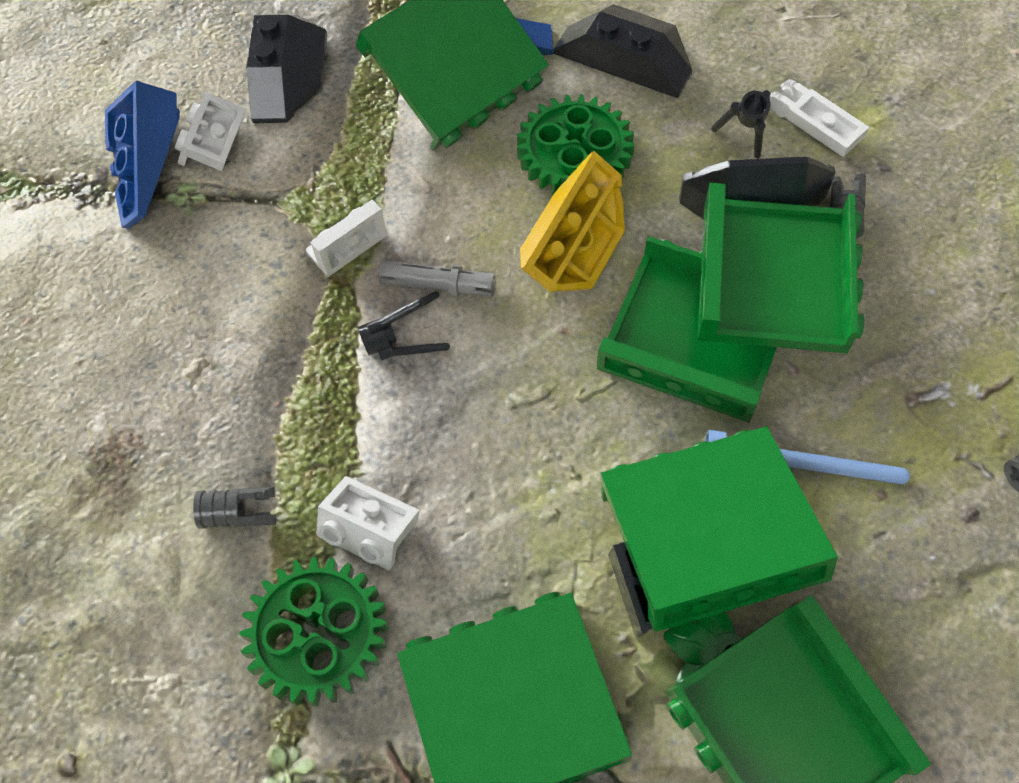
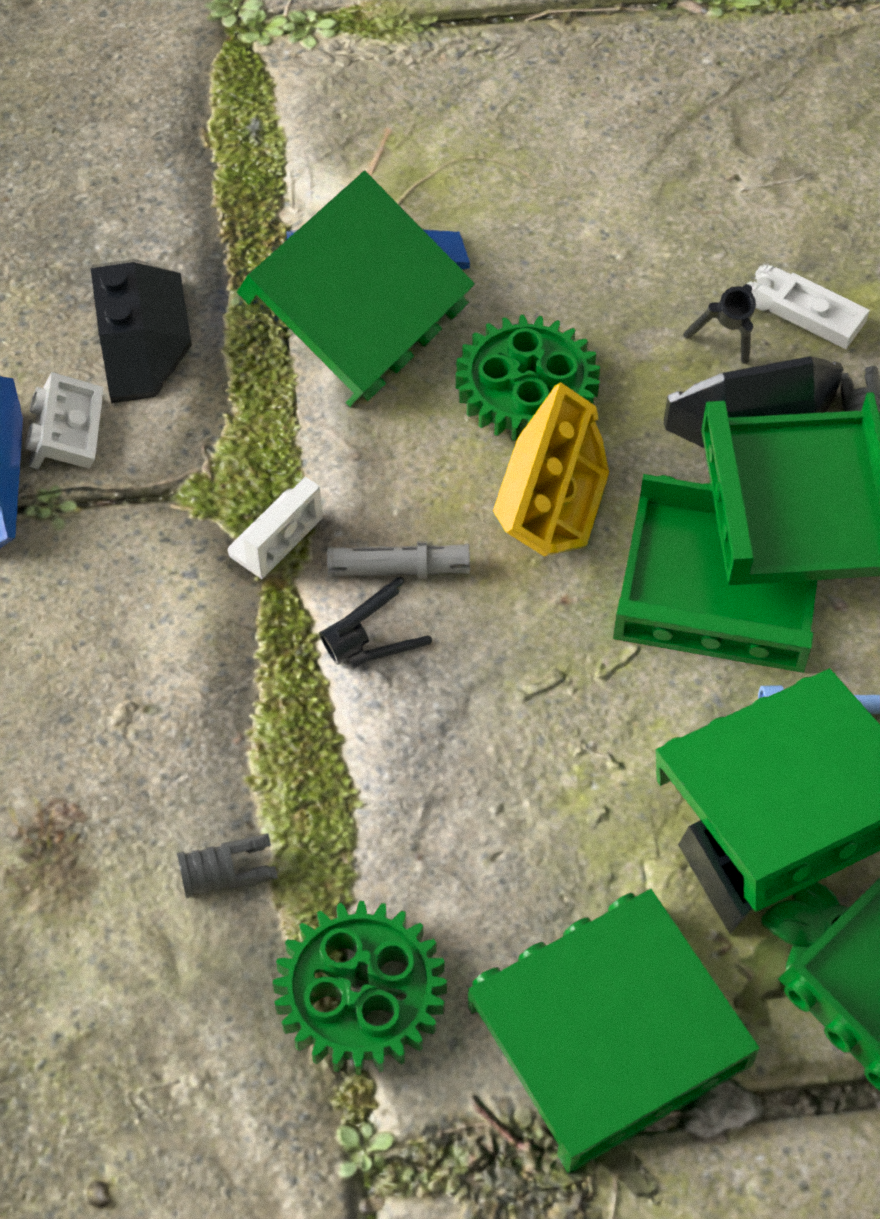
camera: 15 degrees left, 5 degrees down
(365, 522) = (386, 857): white bracket -> none
(629, 48) = (562, 249): black wedge -> none

